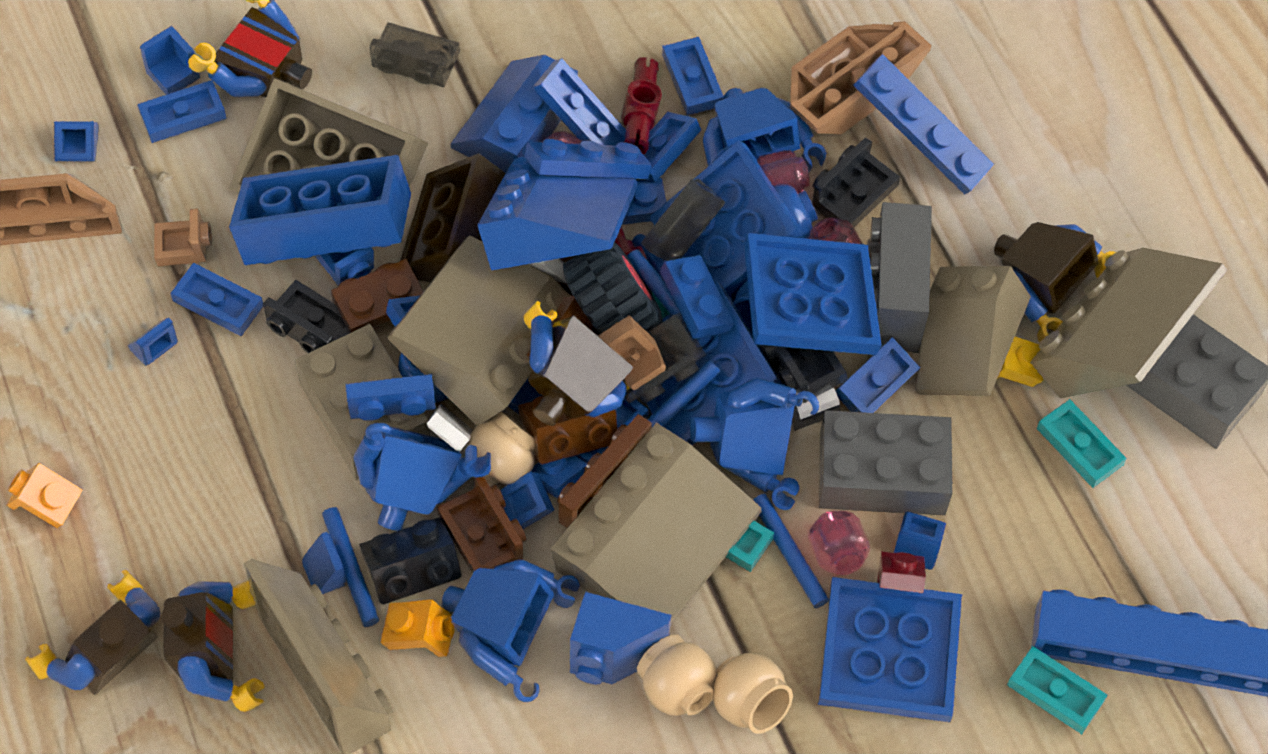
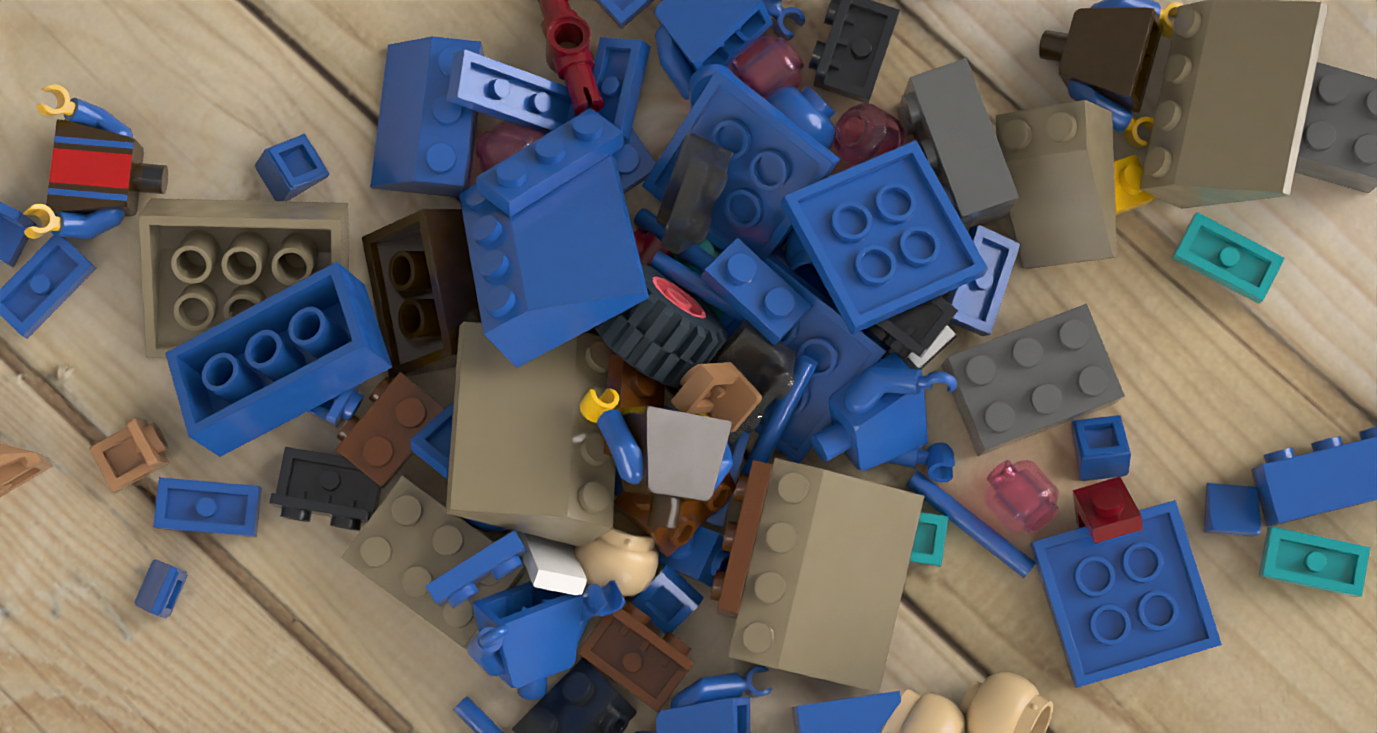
camera: 25 degrees left, 20 degrees up
(400, 109) = (290, 168): none -> blue slope
(414, 54) = (274, 90): clear smoke bracket -> none
(1005, 627) = (1232, 510): none -> blue slope

